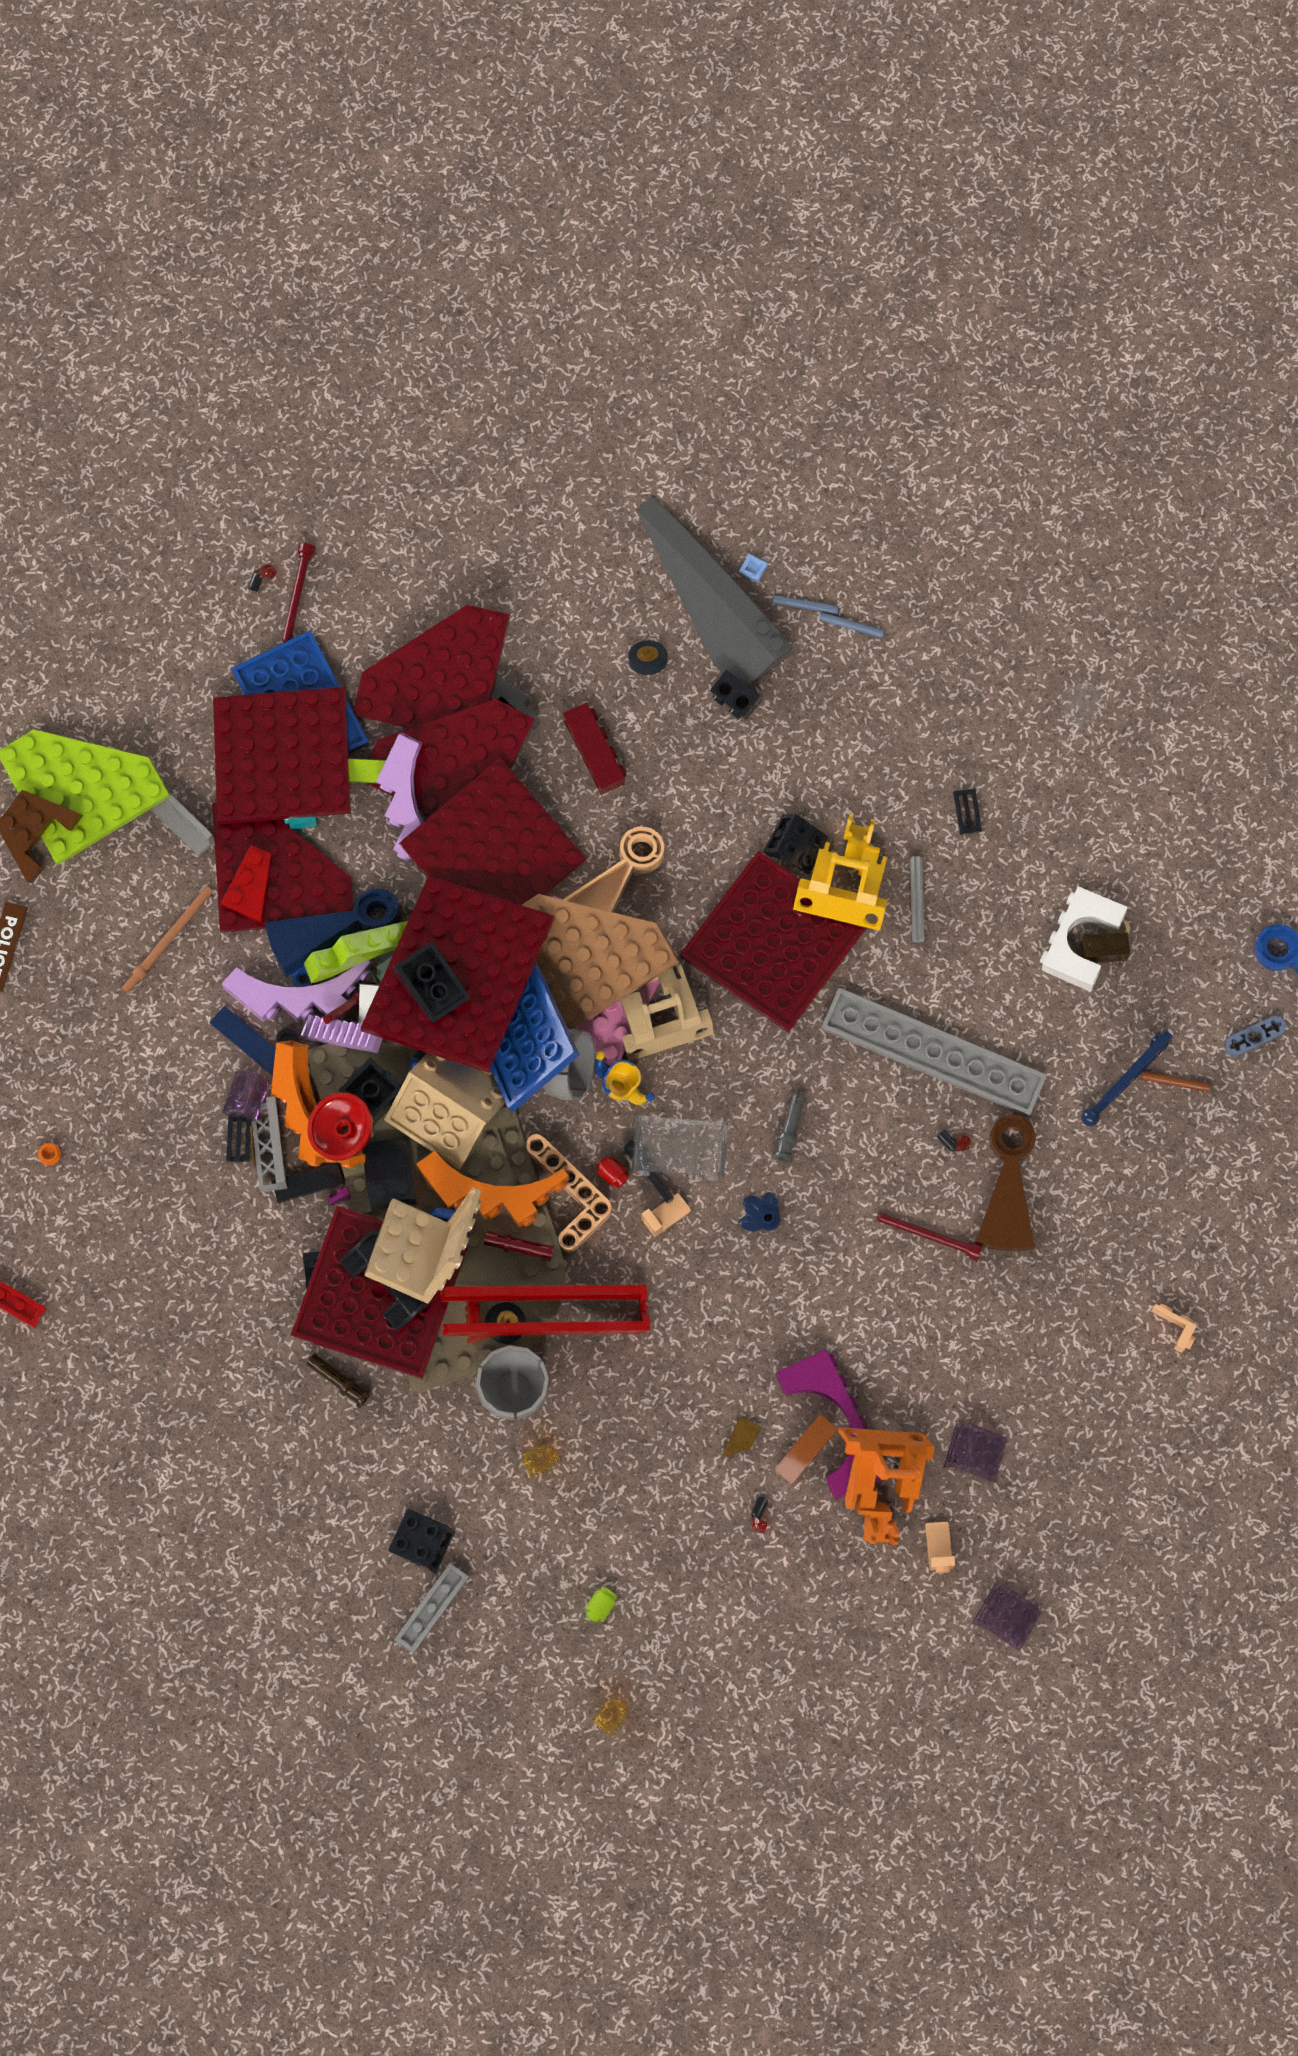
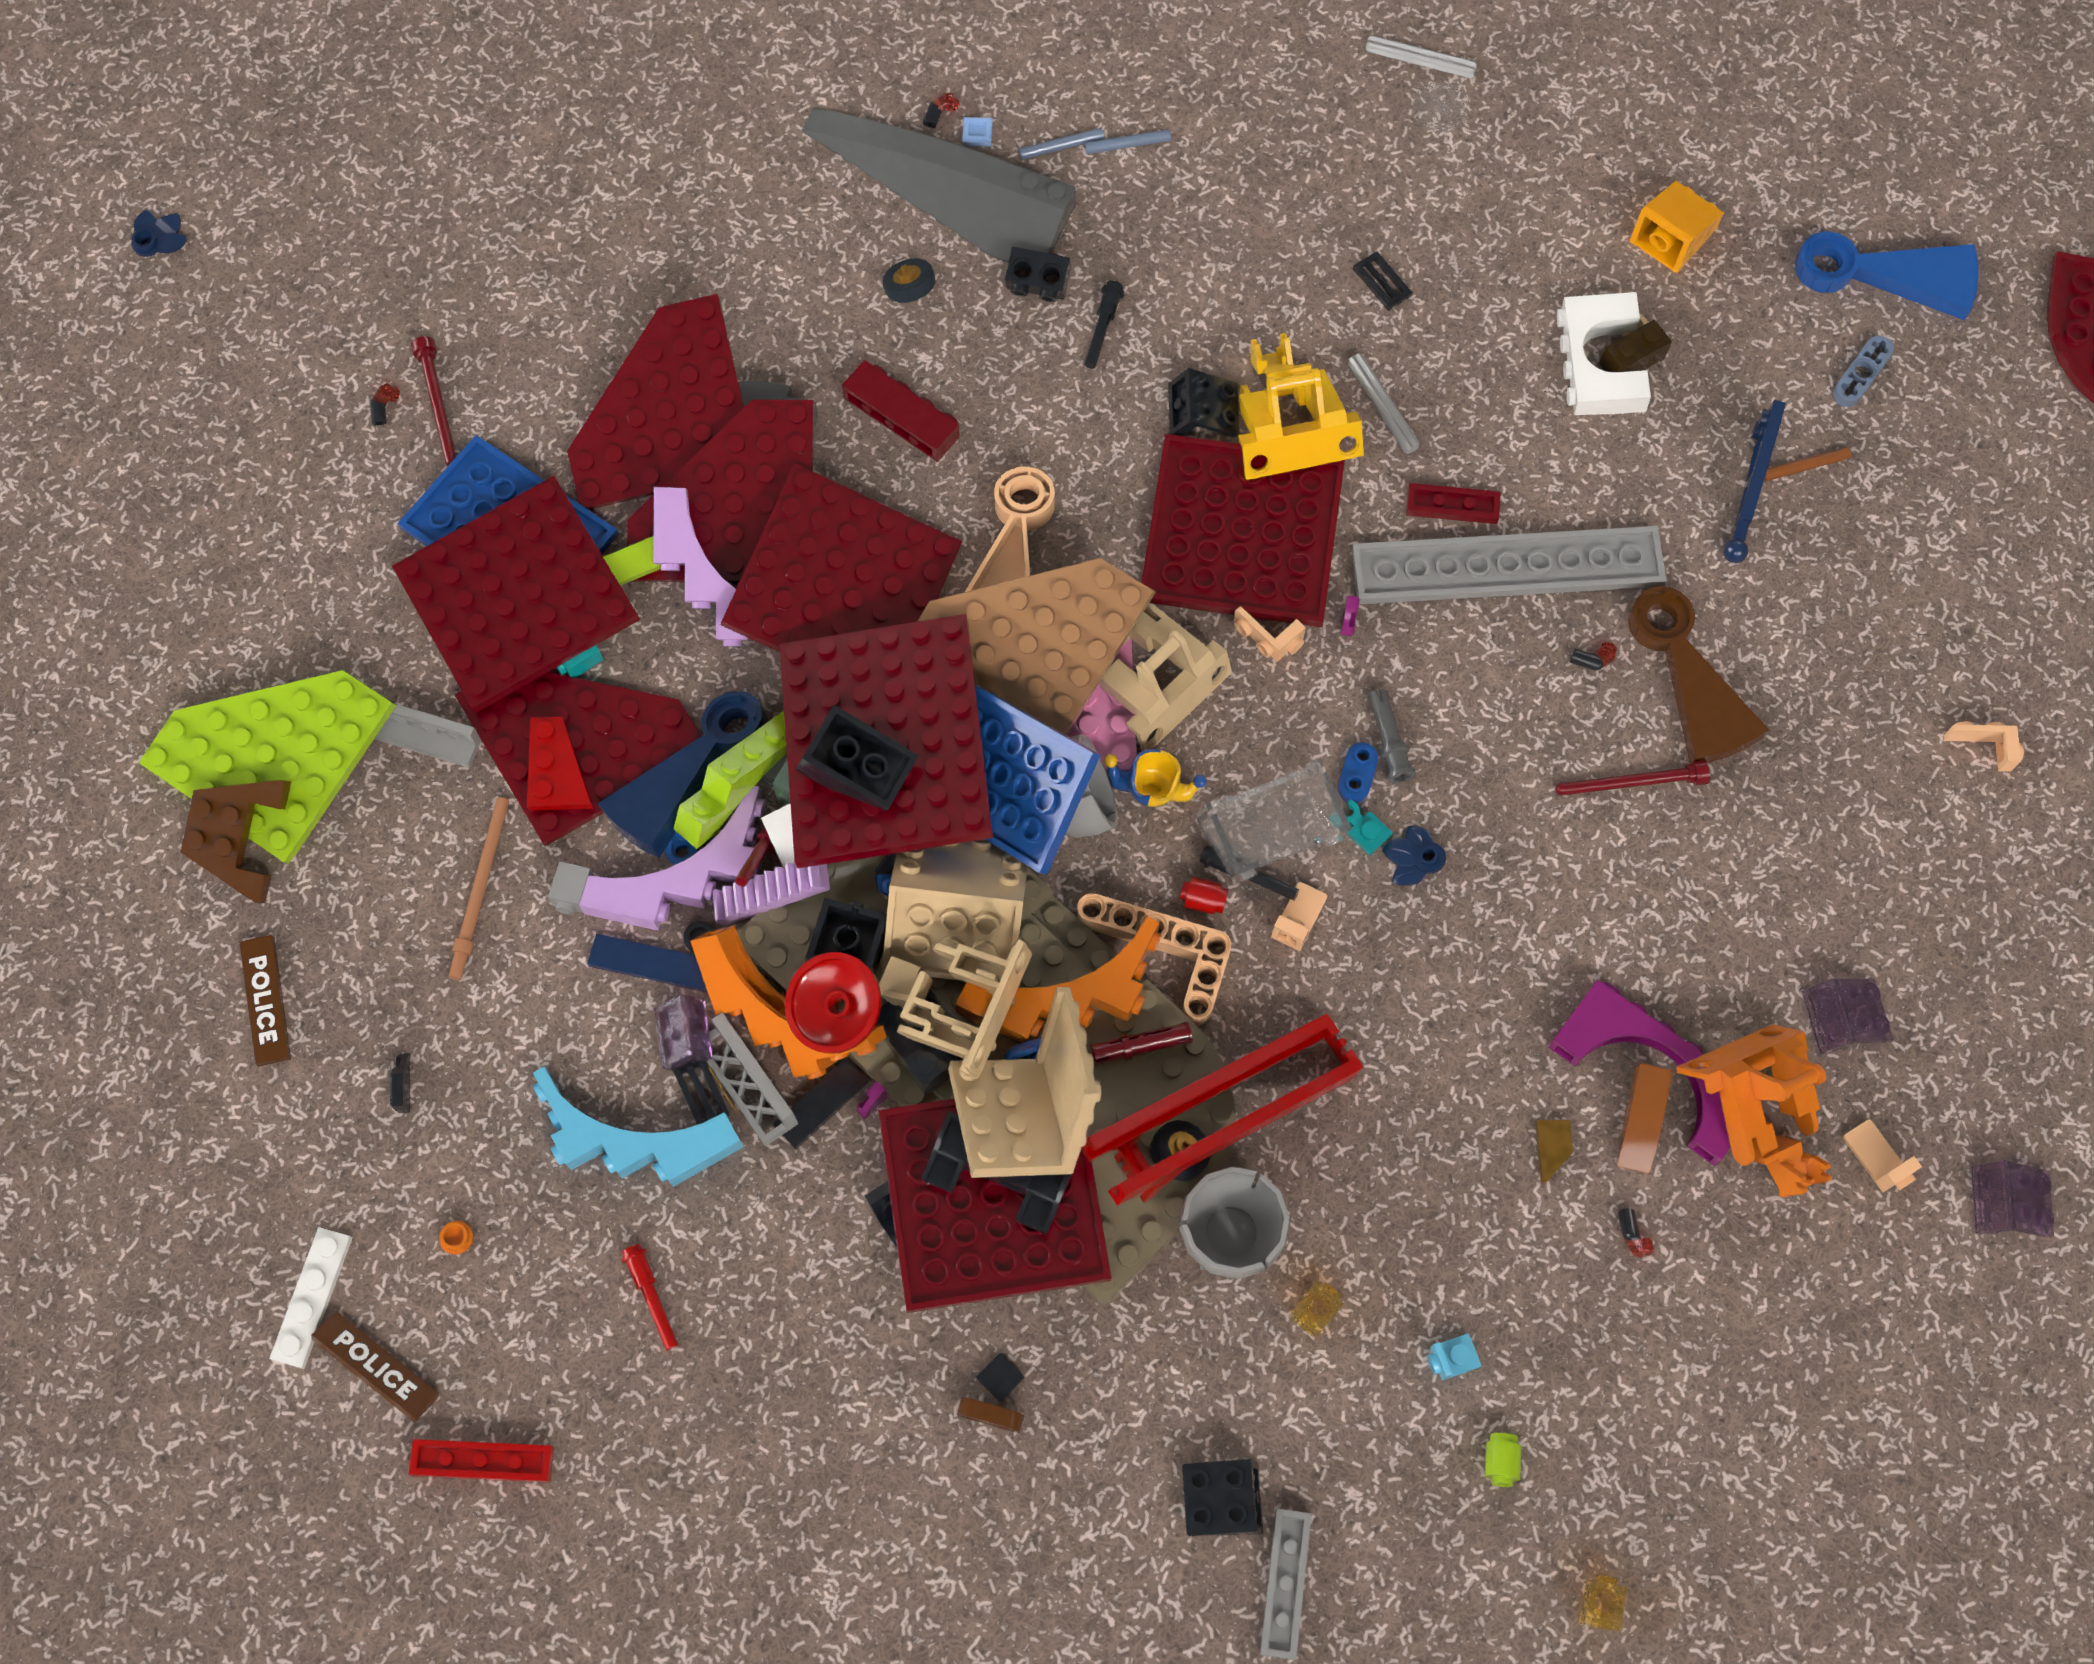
camera: 25 degrees left, 5 degrees down
(60, 1042) = (400, 1084): none -> black tile
(147, 1236) = (644, 1280): none -> red pin
(175, 380) = (161, 232): none -> dark blue plate
(204, 1169) = (678, 1152): none -> medium azure arch
(221, 968) = (568, 887): none -> light grey brick
(311, 1422) = (990, 1414): none -> reddish brown beam
(328, 1403) = (1000, 1377): none -> black tile
(347, 1386) = (1013, 1342): dark brown pin -> none
(392, 1139) = (908, 986): none -> tan container
(606, 1531) = (1453, 1357): none -> medium azure bracket
(736, 536) = (936, 107): none -> arm
(740, 1182) = (1366, 831): none -> teal plate
(757, 1141) = (1358, 771): none -> blue plate
(759, 1032) = (1288, 641): none -> light nougat bracket
(774, 737) = (1112, 293): none -> black pin
(809, 1035) = (1349, 617): none -> magenta tile
(922, 992) = (1453, 503): none -> dark red plate
(1089, 659) = (1421, 56): none -> light grey axle
(1189, 870) = (1675, 225): none -> light orange slope

